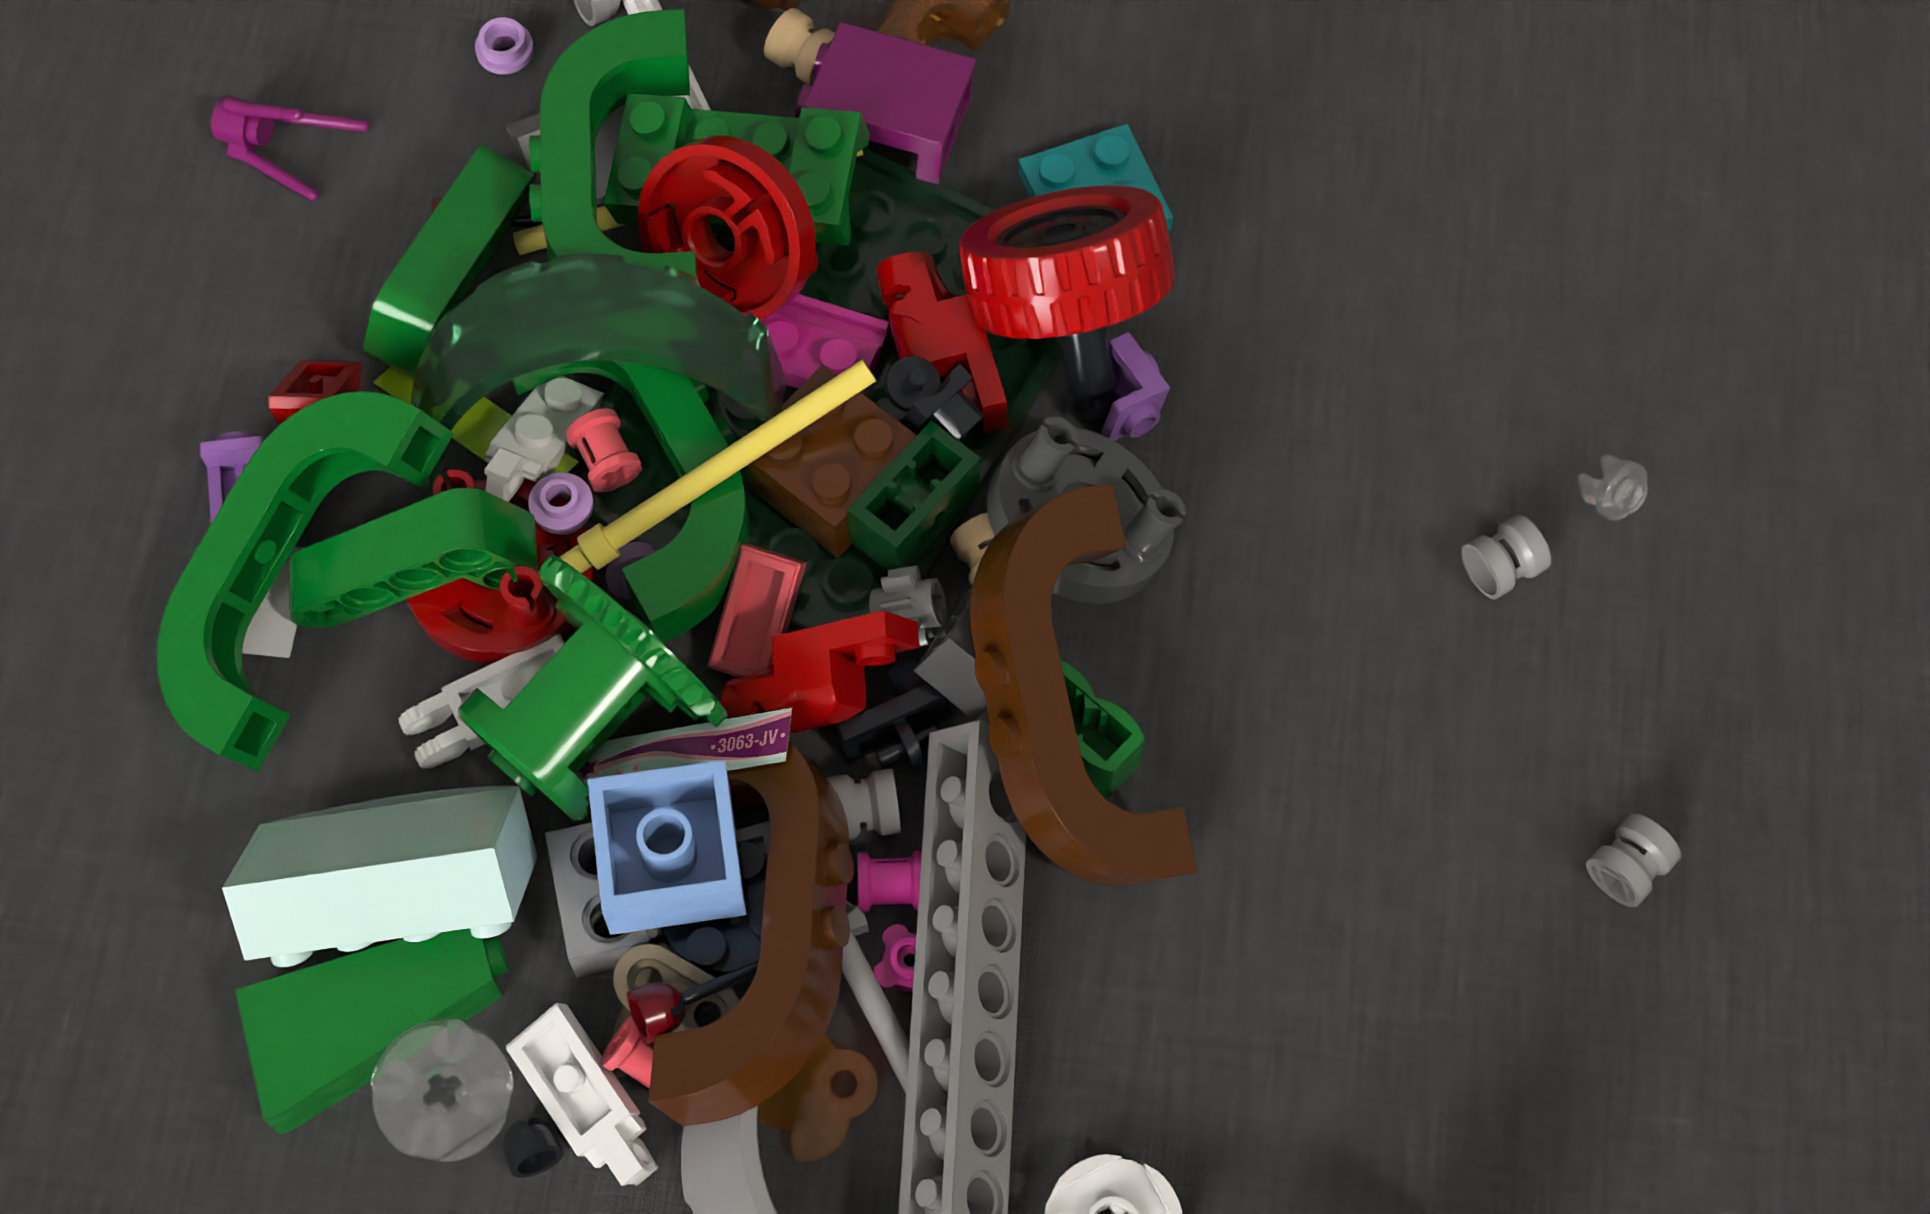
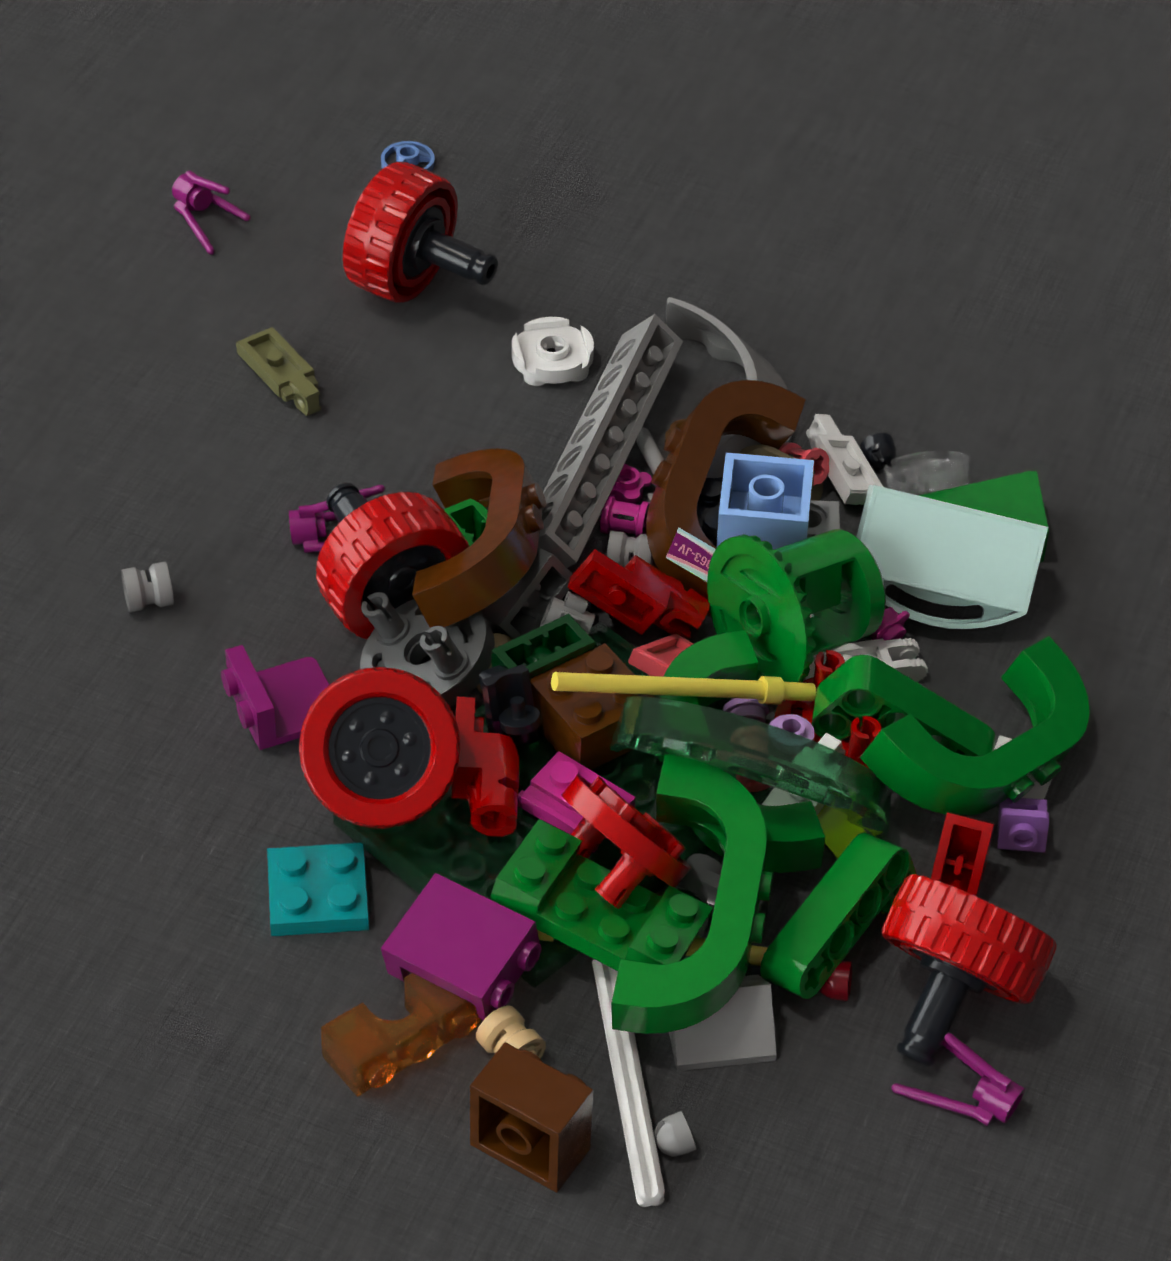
camera: 165 degrees left, 20 degrees down
(283, 216) = (964, 948): none -> red wheel
(464, 764) = (891, 625): none -> dark pink plate
(501, 34) = (769, 1104): lavender plate -> none
(661, 1007) = (787, 445): dark red hinge -> none
(1178, 605) = (380, 550): none -> red wheel
(1252, 425) = (272, 699): none -> magenta bracket
(1334, 733) = (309, 521): none -> magenta plant
(1523, 1049) = (281, 369): none -> olive hinge
(1620, 490) = (46, 605): clear plate -> none
(1633, 860) = (164, 427): light grey wheel -> none

